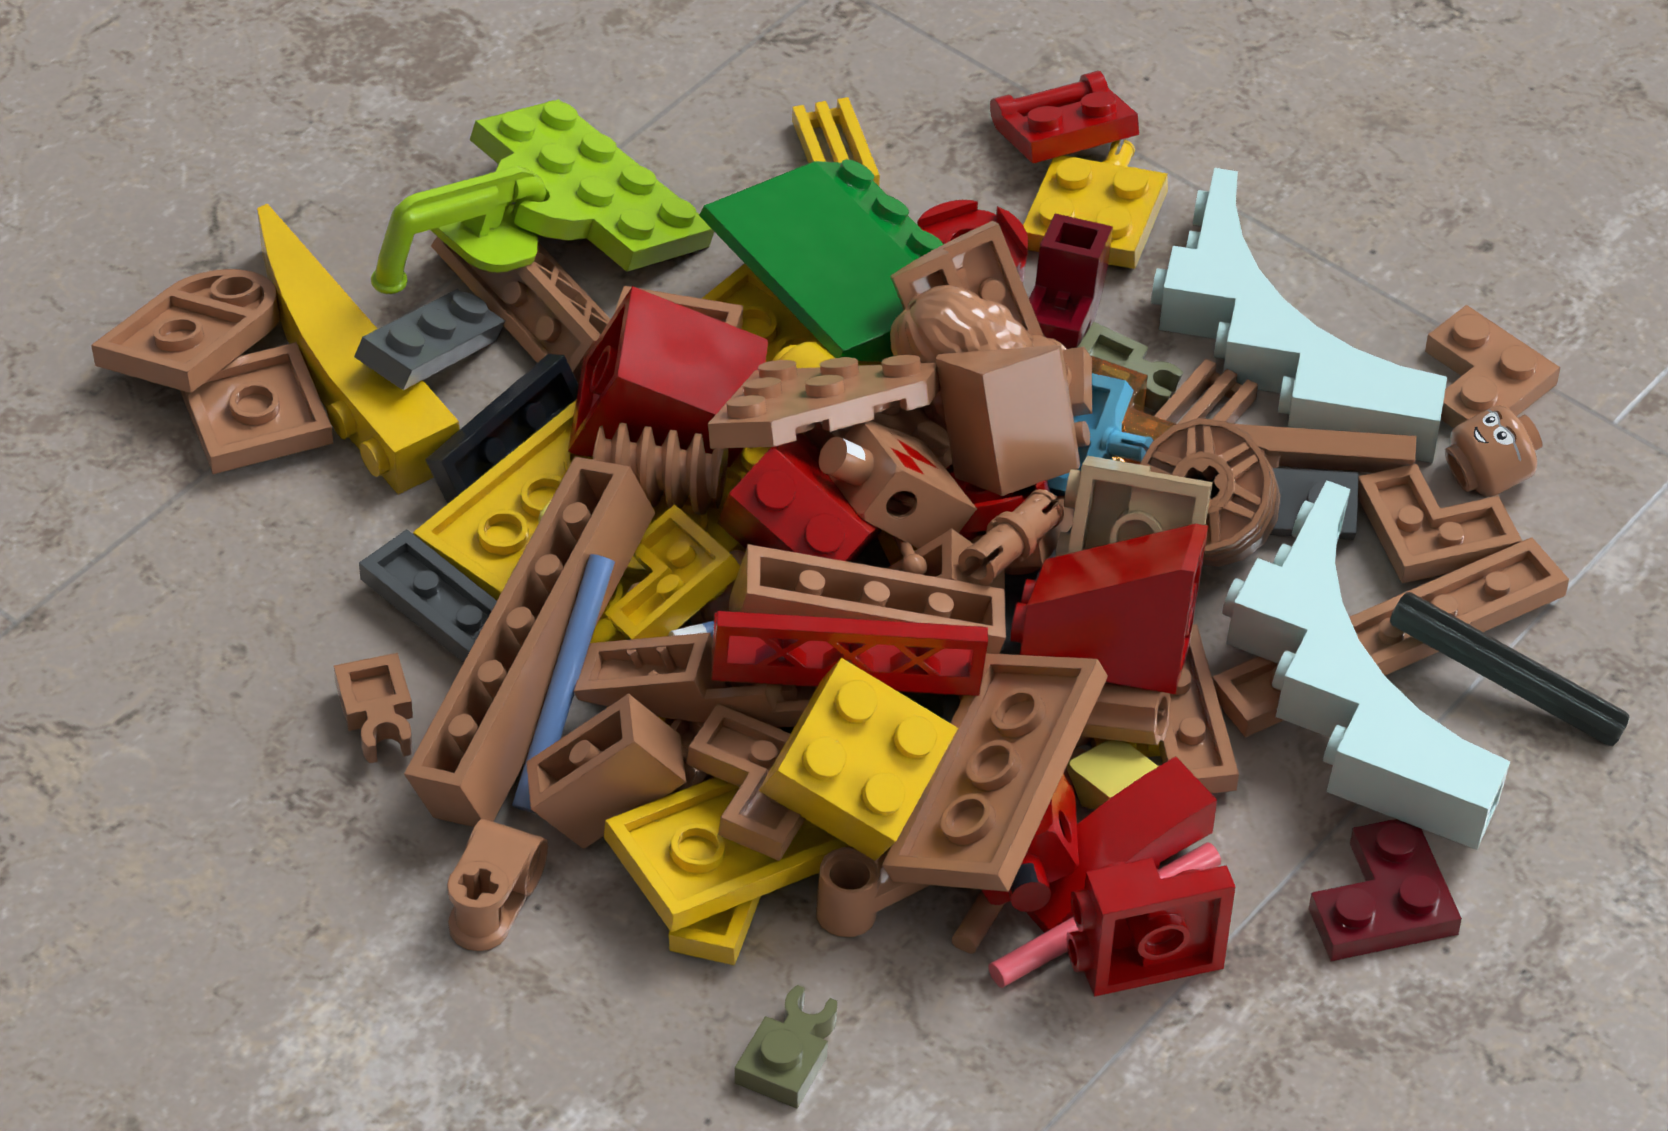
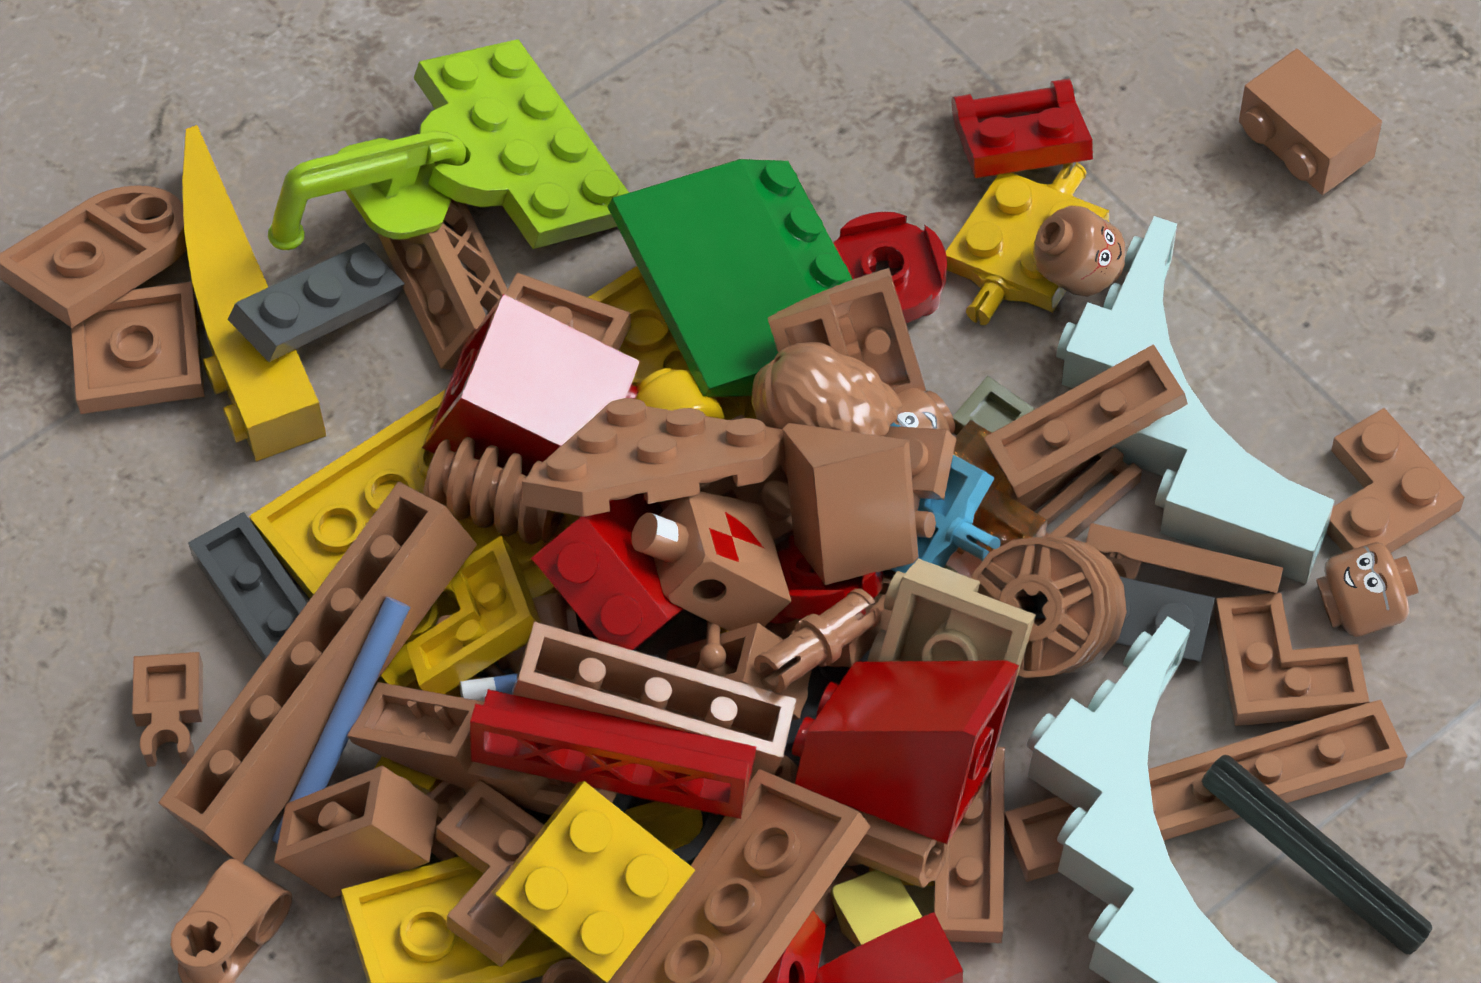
camera: 15 degrees right, 10 degrees up
(503, 425) = (367, 407): black hinge -> none
(826, 119) = (781, 92): yellow tile -> none
(1070, 277) = (972, 328): dark red brick -> none
(1155, 202) = (1079, 251): none -> nougat head
(1204, 334) = (1085, 420): none -> nougat hinge
(1334, 77) = (1309, 121): none -> nougat brick

